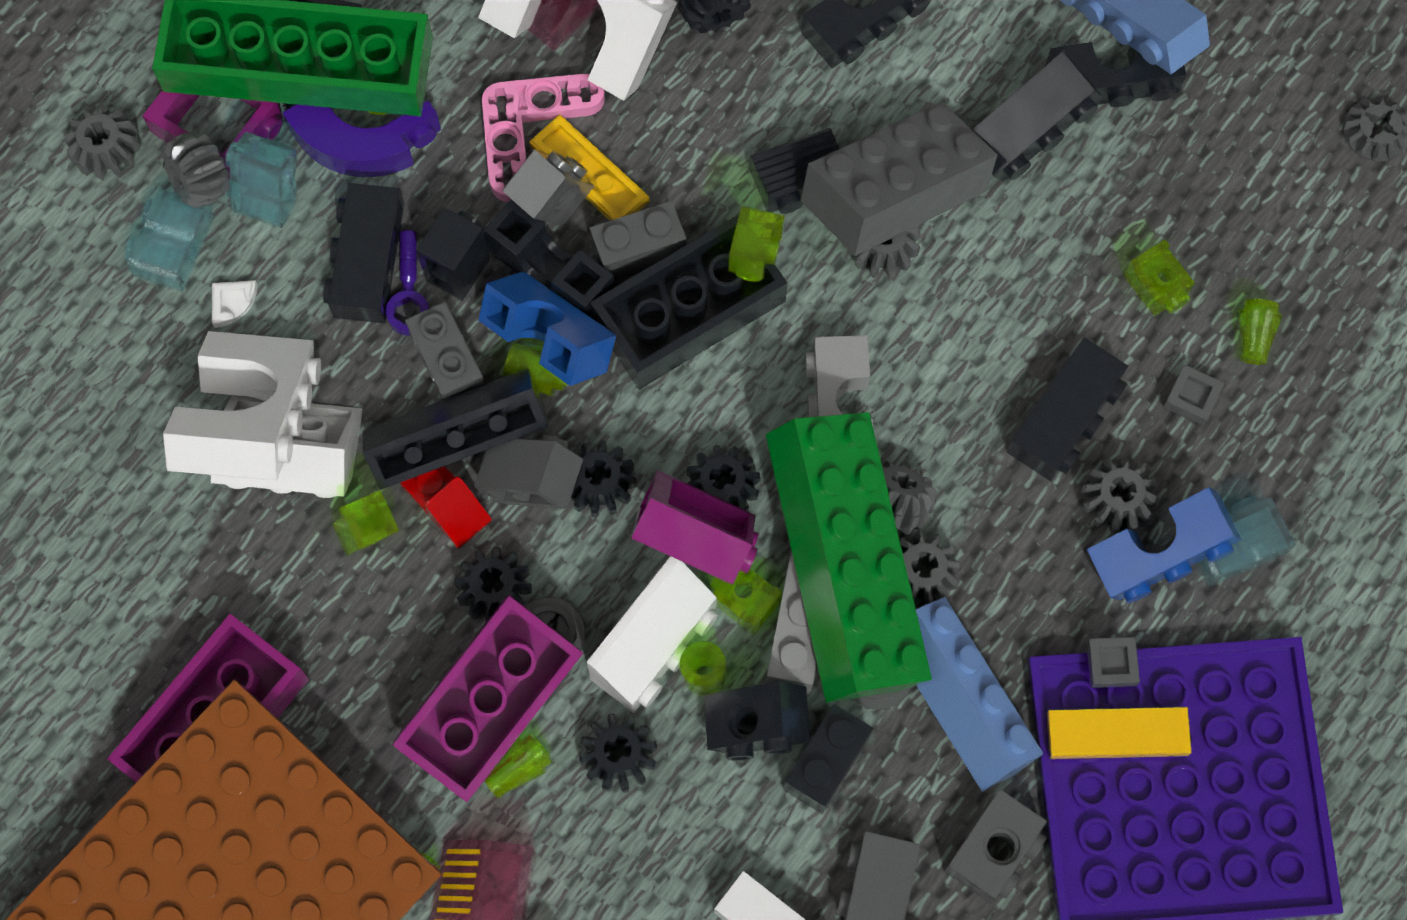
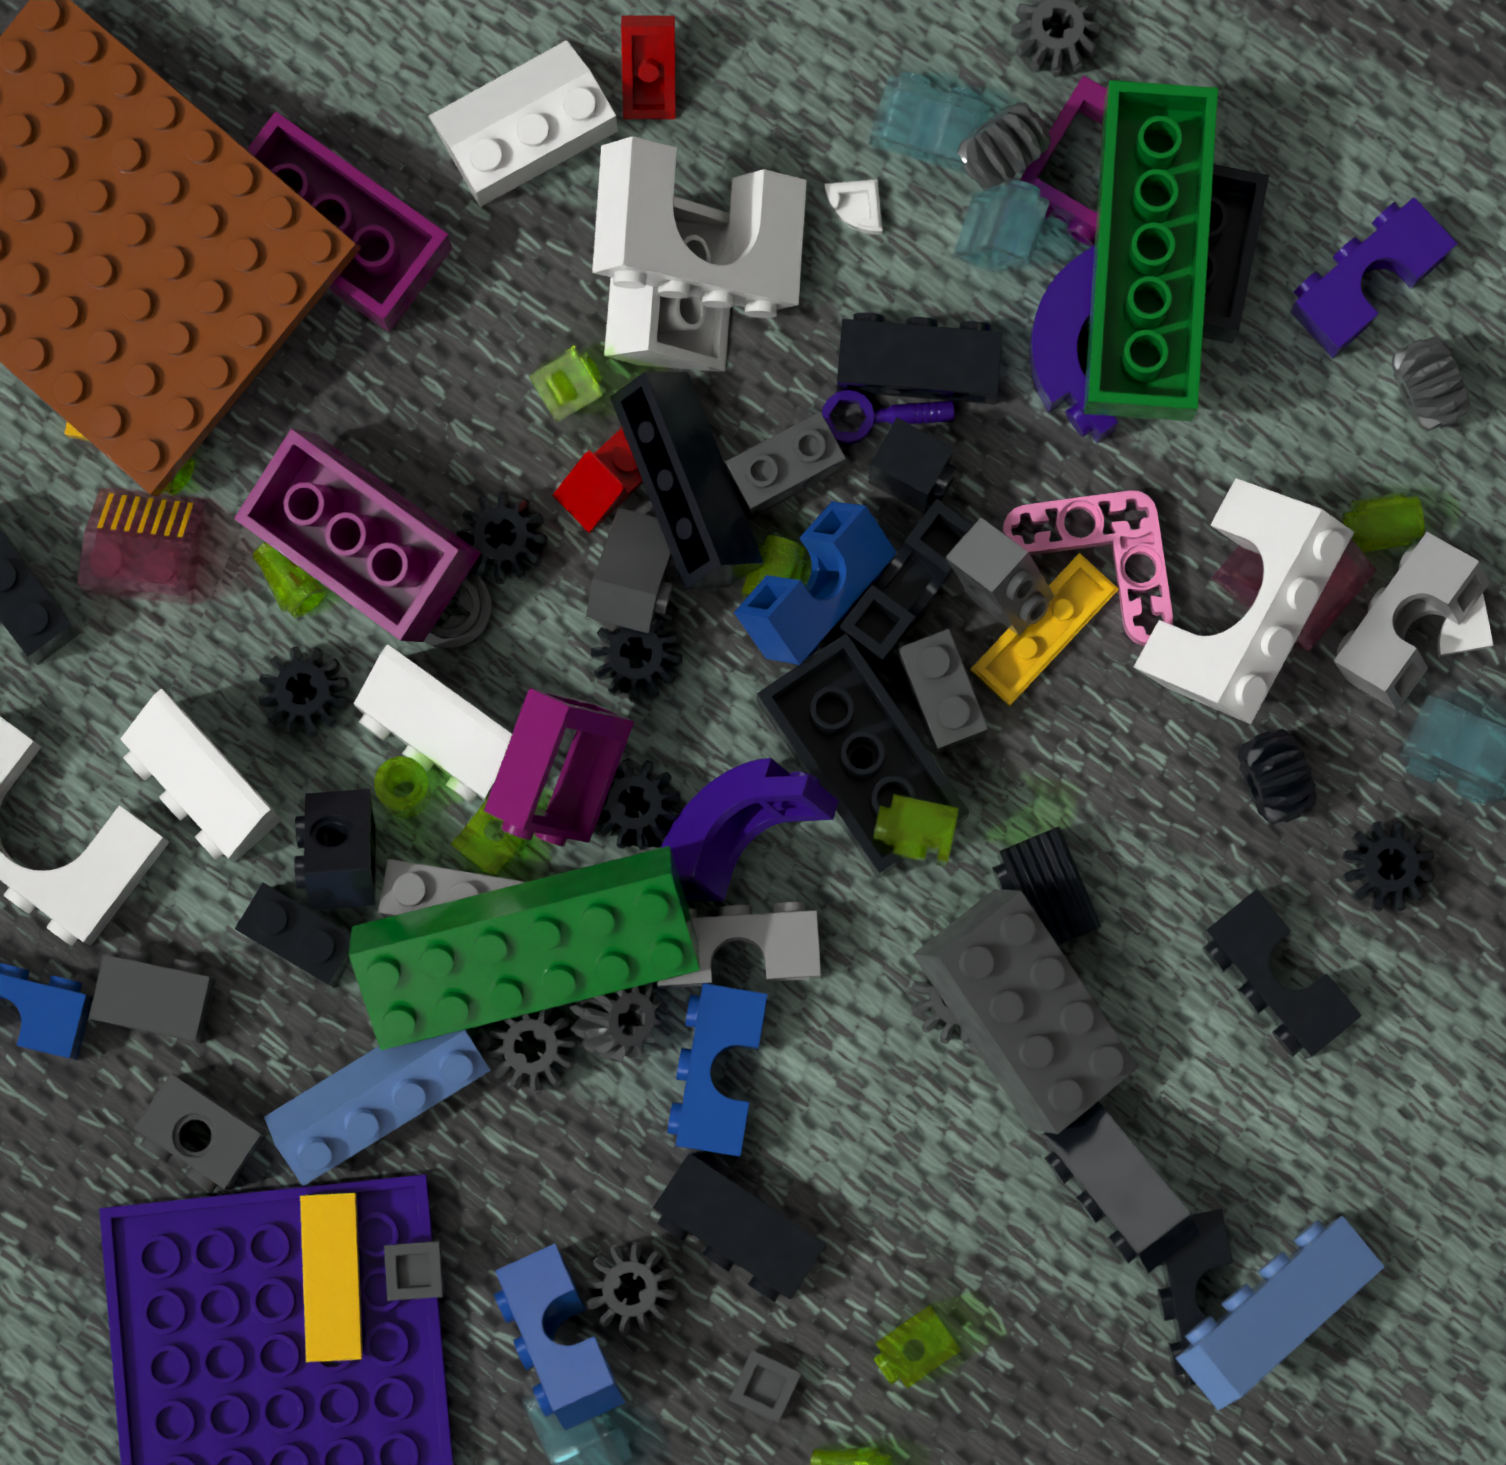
camera: 90 degrees right, 10 degrees up
(98, 455) = (648, 67): none -> red slope
(134, 560) = (525, 122): none -> white slope
(692, 840) = (197, 779): none -> white slope
(726, 394) = (731, 814): none -> dark purple arch
(978, 434) = (721, 1021): none -> blue arch

